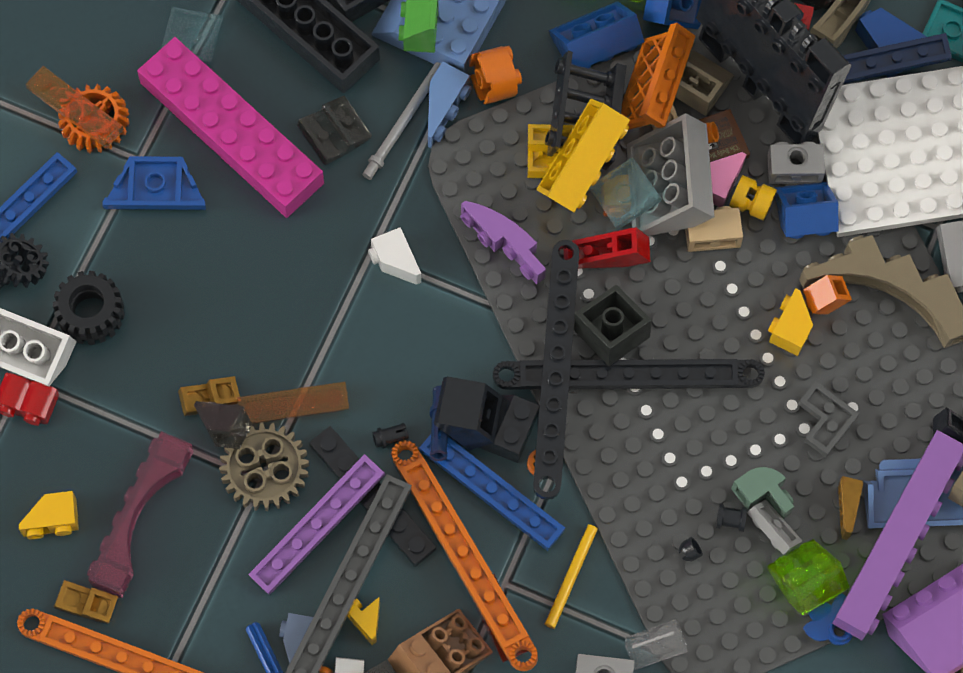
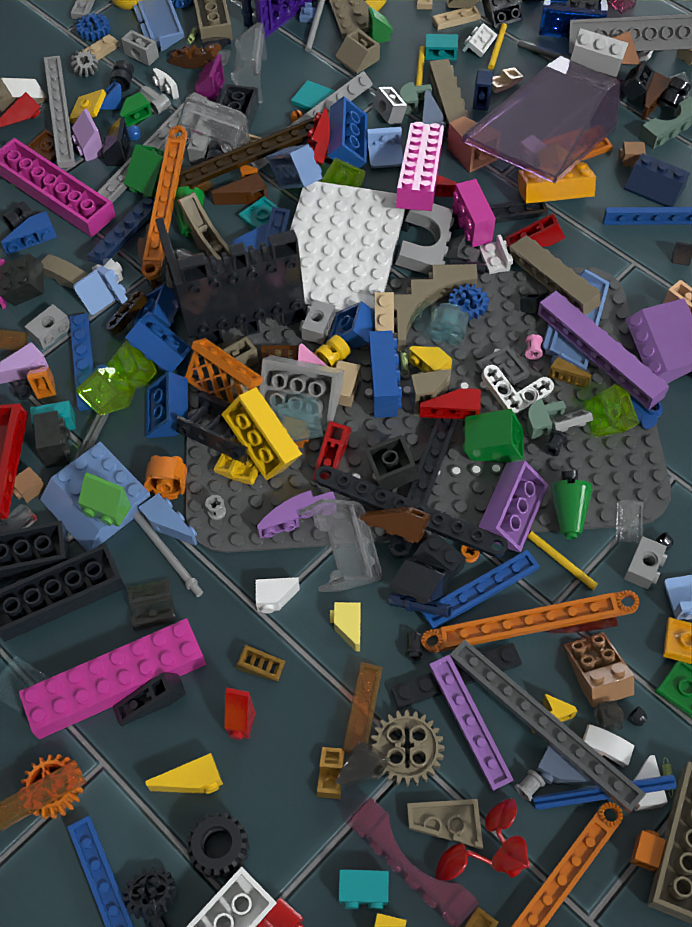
camera: 65 degrees left, 10 degrees down
(96, 472) = (363, 888): none -> teal brick
(155, 184) = (134, 755): blue wing -> none
(155, 259) = (193, 777): none -> yellow slope
(174, 601) = (509, 858): none -> red plant
(199, 537) = (448, 820): none -> dark tan wing
(223, 175) = (150, 698): none -> black slope
(231, 272) = (238, 713): none -> red slope
(268, 613) = (529, 785): none -> light grey bush
(306, 253) = (249, 668): none -> pearl gold slope
(389, 352) = (347, 622): none -> light yellow slope
(473, 154) = (218, 508): none -> light grey bush
(491, 319) = (350, 543): none -> clear windscreen
(532, 360) = (405, 522): none -> reddish brown slope
(616, 492) = (514, 504): none -> medium lavender slope
(639, 560) = (571, 506): none -> green cone
(706, 440) = (494, 437): none -> green slope
(730, 373) = (453, 405): none -> red slope
(737, 333) = (428, 386): none -> dark tan slope
(741, 270) = (384, 374): none -> blue brick
(780, 293) = (404, 362): none -> yellowish green piece
(784, 453) = (516, 397): none -> white beam
(827, 242) = (384, 311): none -> tan plate
(827, 294) = (419, 333): orange brick -> none
(856, 325) = (448, 323): none -> clear light blue brick
(874, 449) = (533, 347): none -> bright pink bush
(926, 341) = (476, 299): none -> blue gear

